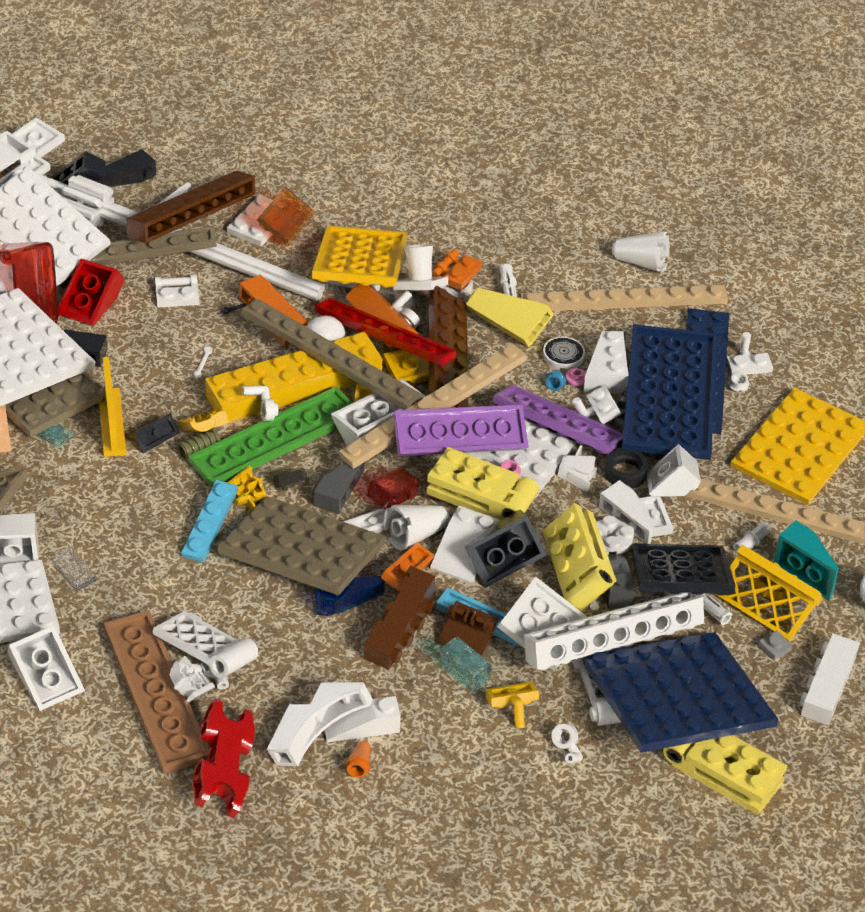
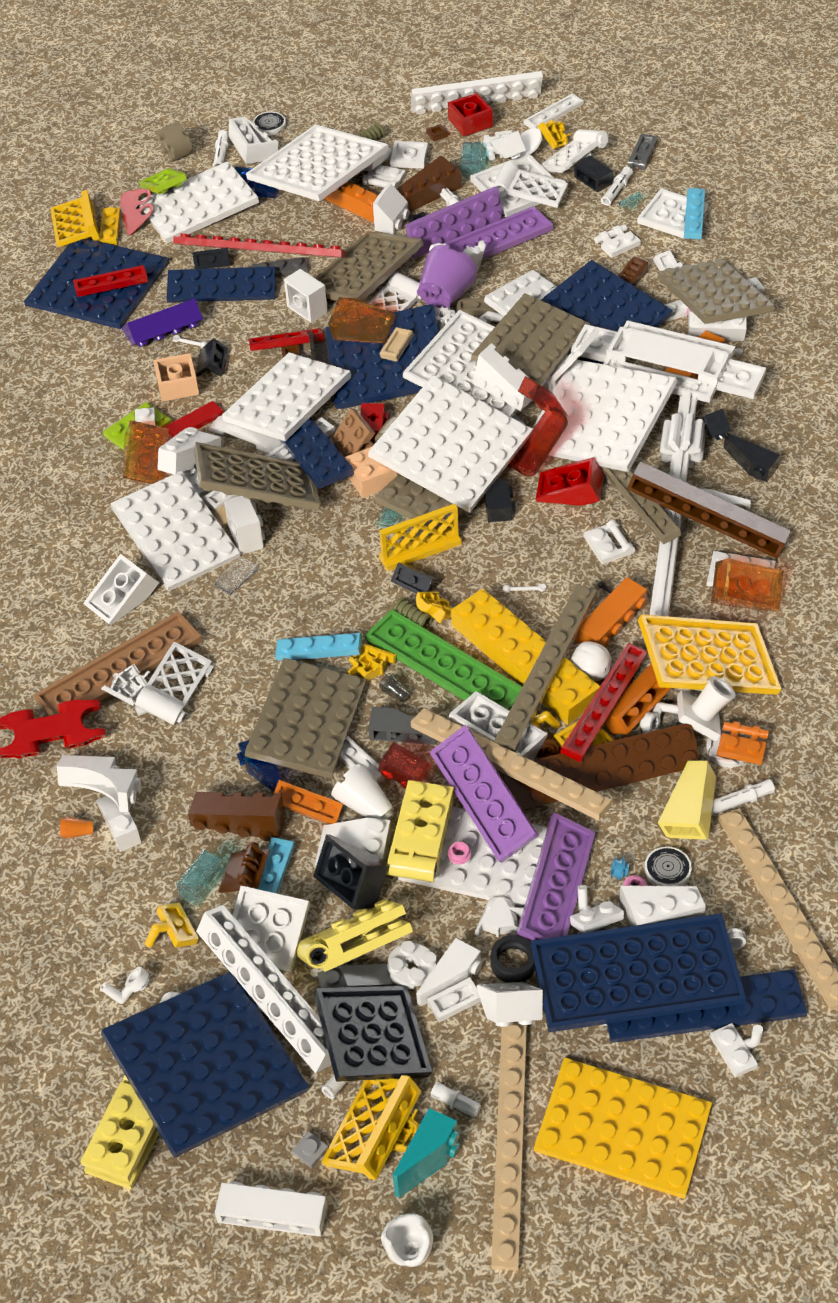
camera: 80 degrees right, 5 degrees up
(268, 407) = (464, 642): white plate -> none
(738, 382) = (699, 1039): white plate -> none

